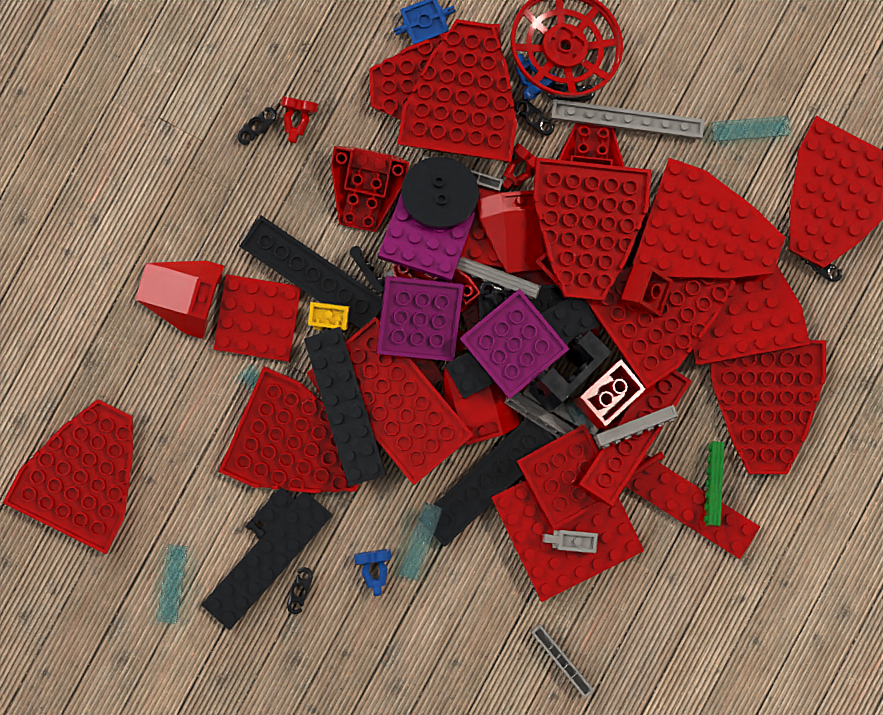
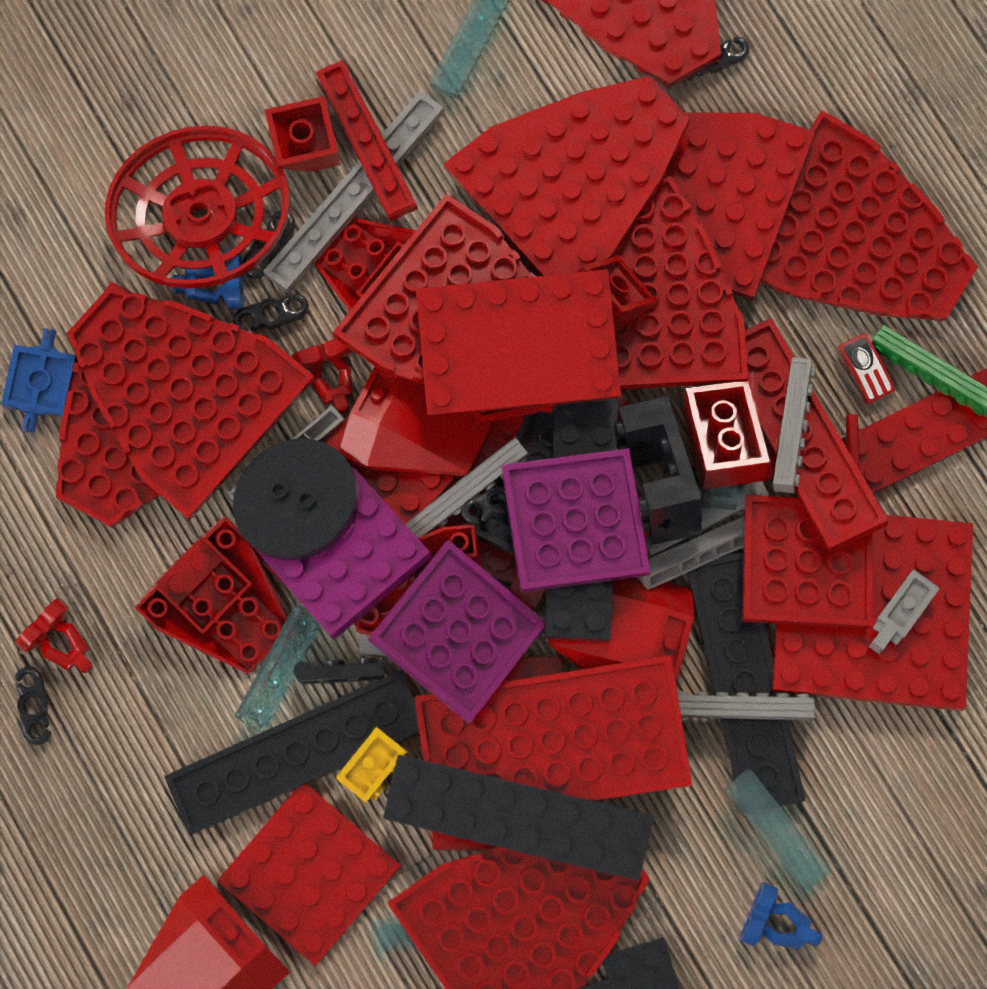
camera: 60 degrees left, 10 degrees down
(348, 238) = (278, 669): none -> clear light blue plate
(473, 487) = (746, 707): none -> light grey piece
(588, 257) = (518, 343): none -> red plate
(639, 73) = (303, 136): none -> red slope
(658, 108) = (366, 140): none -> red tile
(695, 446) = (866, 367): none -> slope

